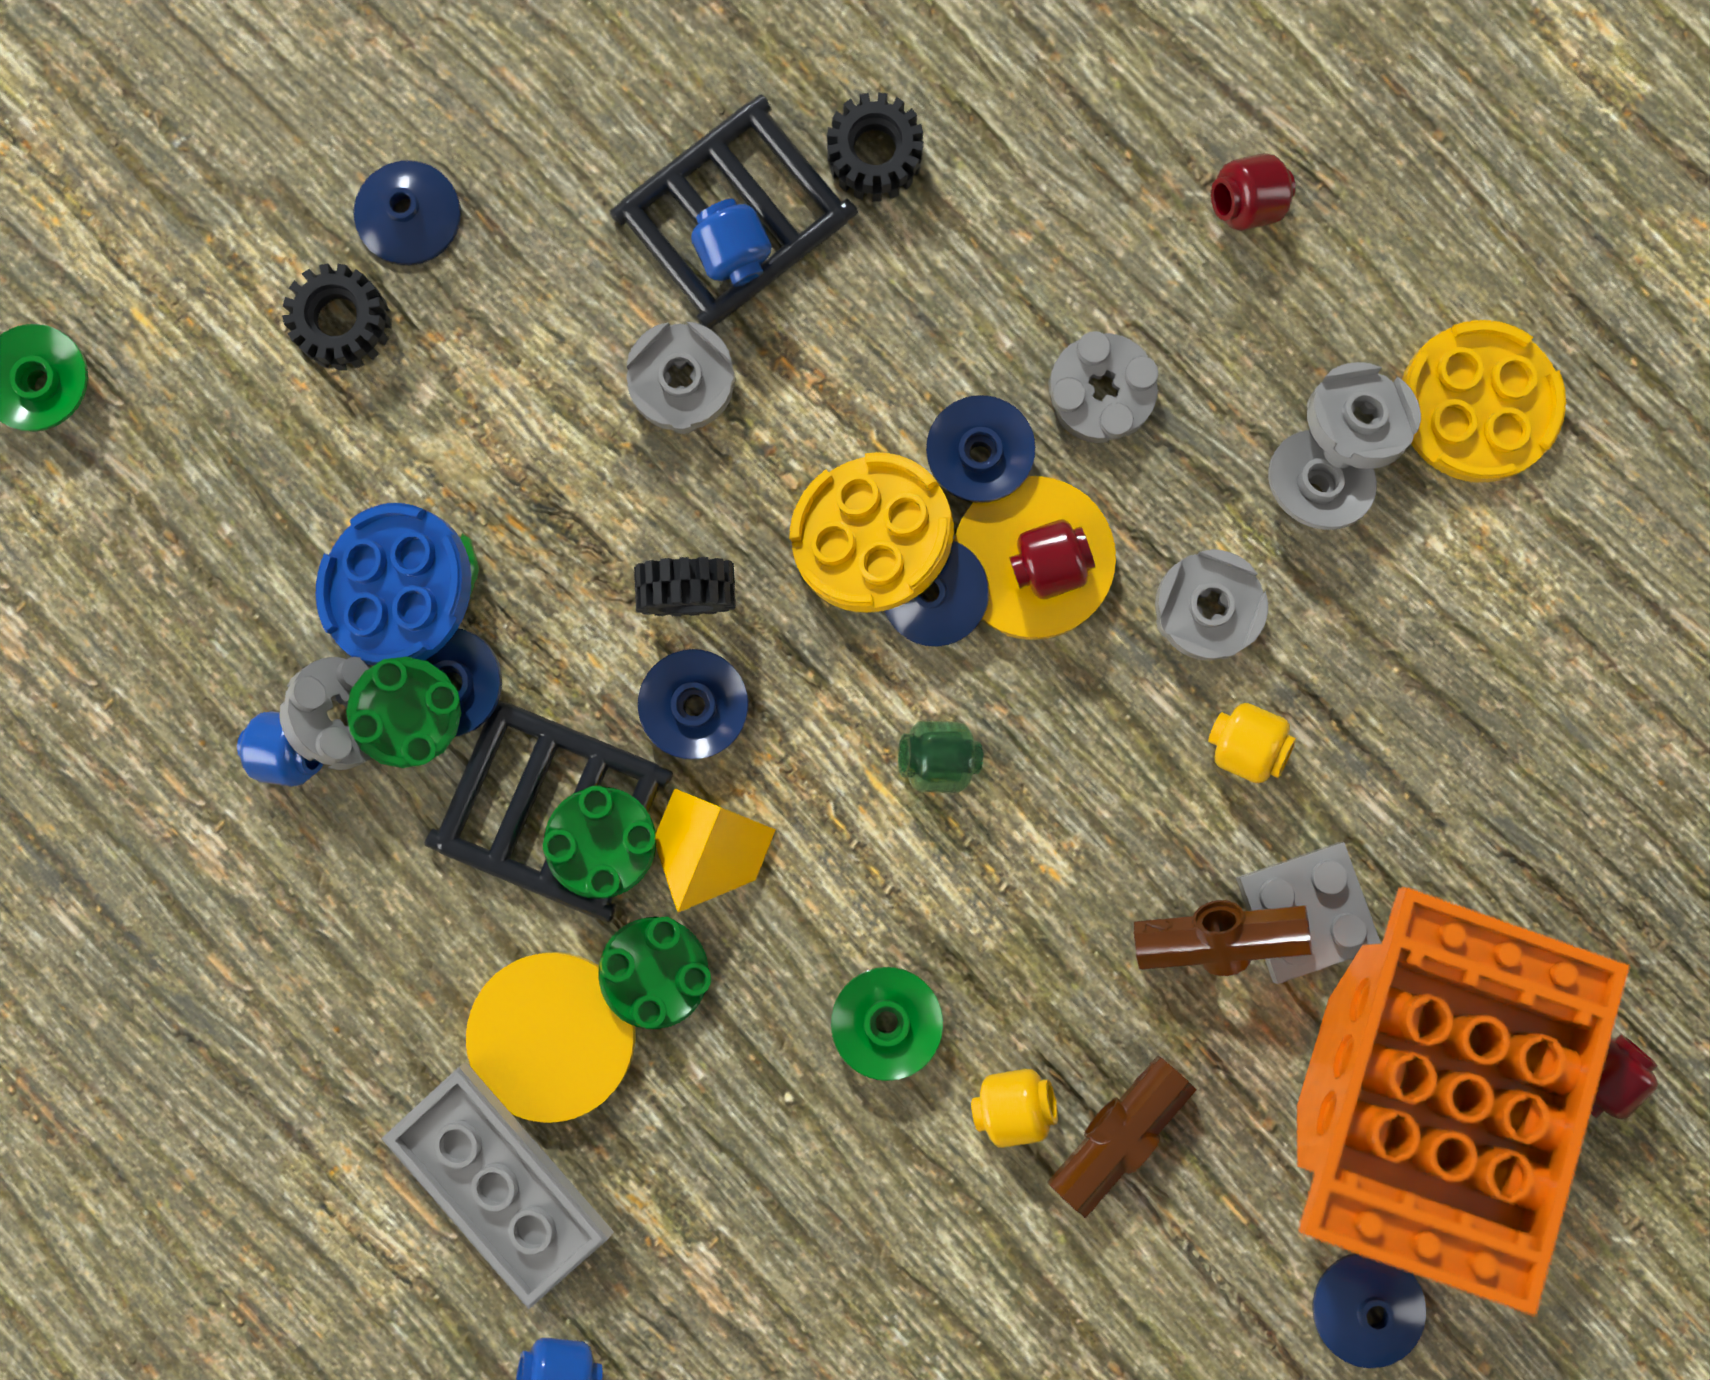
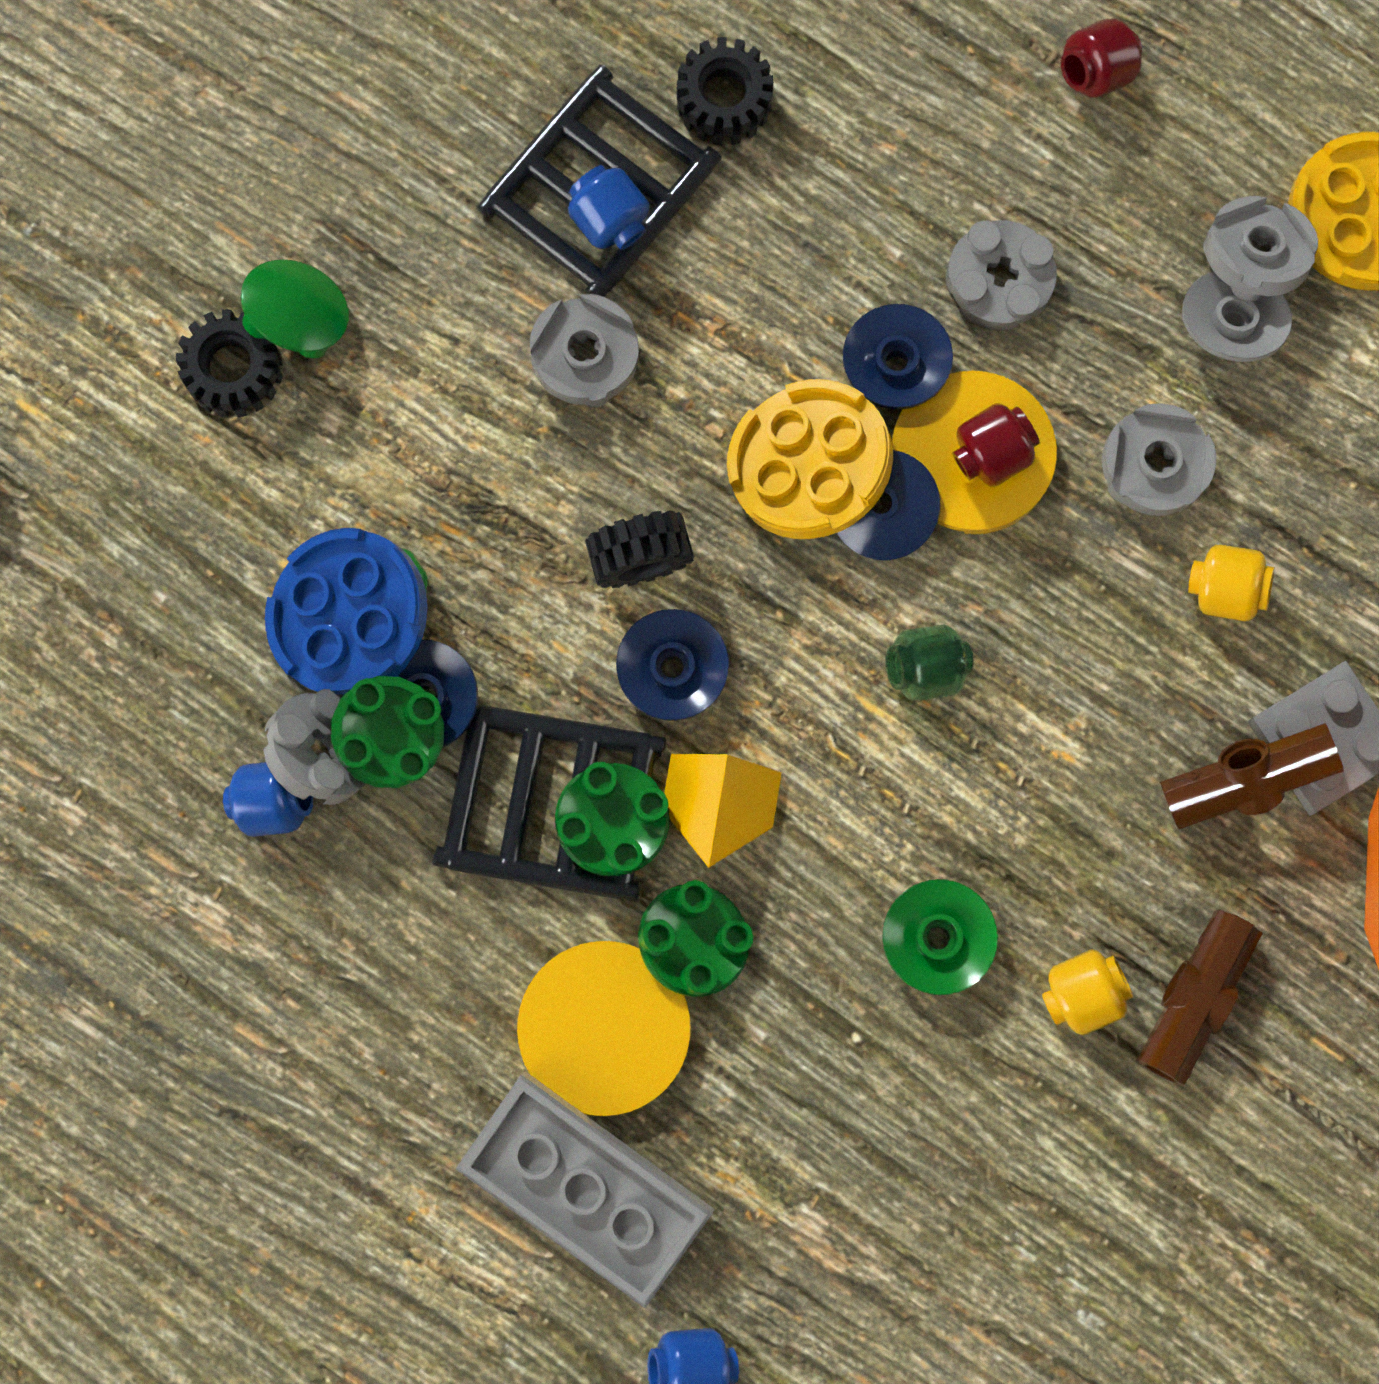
camera: 15 degrees left, 5 degrees down
(408, 275) = (294, 307): none -> green dish
(421, 230) = (297, 227): dark blue dish -> none

